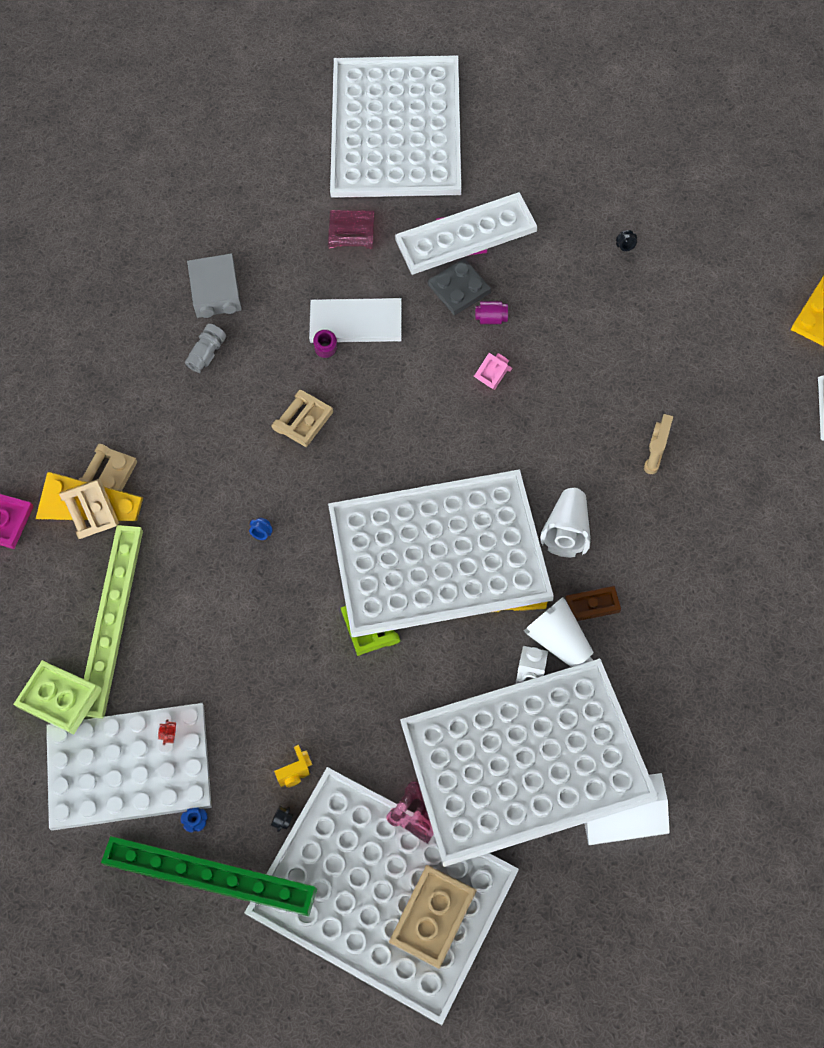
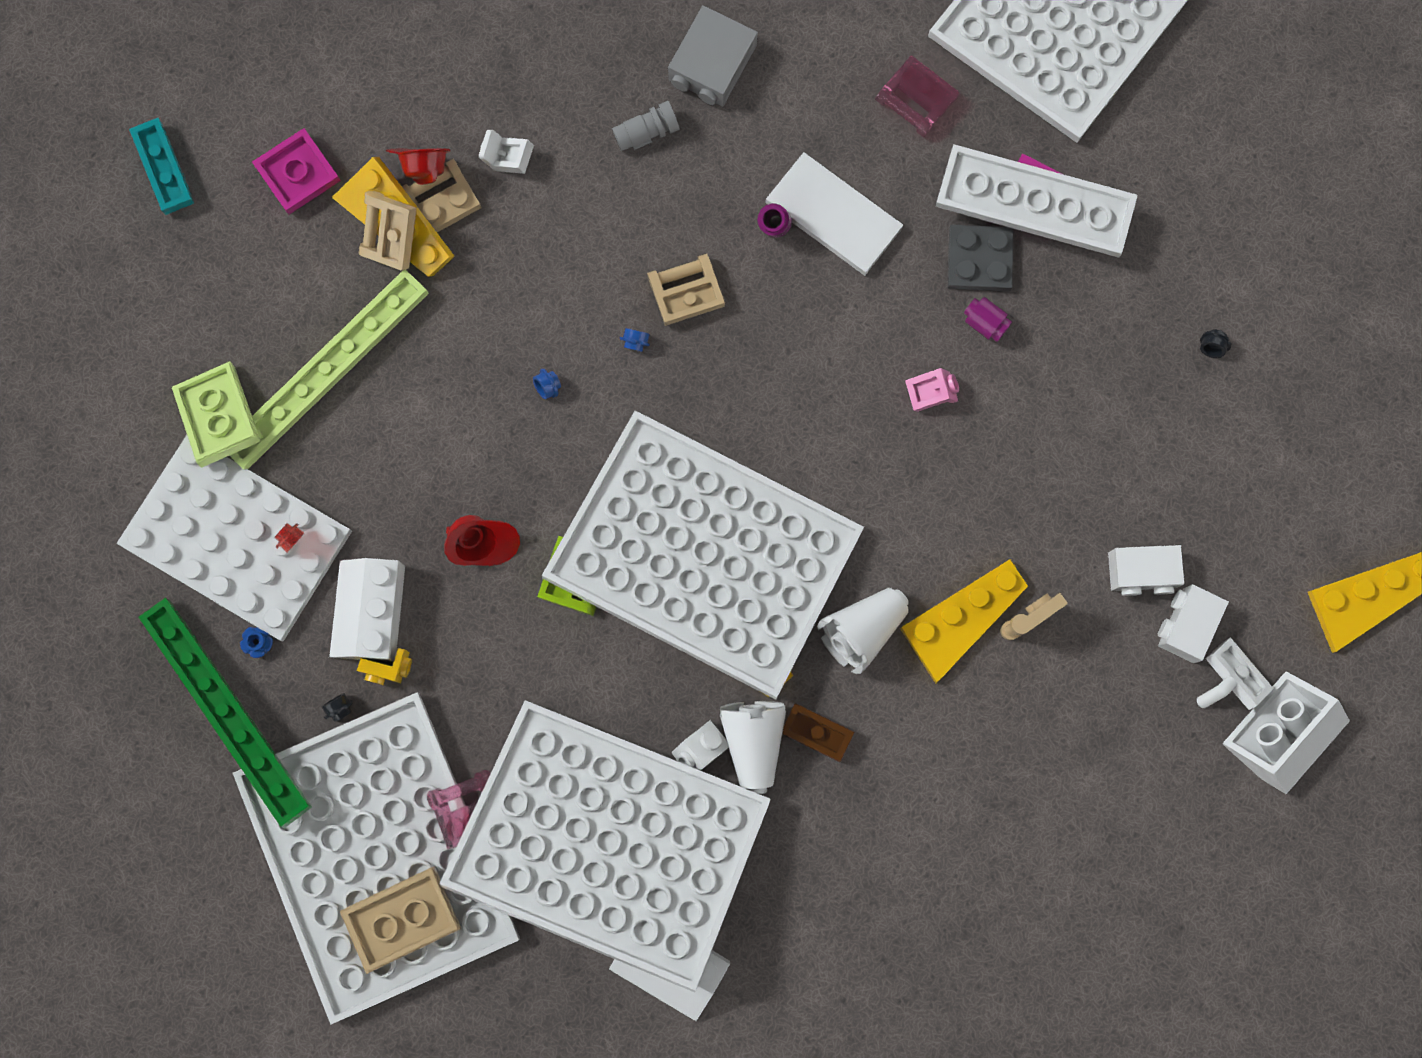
camera: 35 degrees right, 15 degrees up
(82, 455) = (422, 164): none -> red piece
(130, 419) = (505, 153): none -> white bracket
(251, 742) = (367, 609): none -> white slope
(294, 465) = (635, 339): none -> blue plate
(294, 646) = (480, 541): none -> red piece
(618, 484) = (959, 621): none -> yellow wing
(695, 377) = (1146, 568): none -> white brick
(747, 387) = (1192, 623): none -> white brick
(797, 396) = (1237, 675): none -> white plate

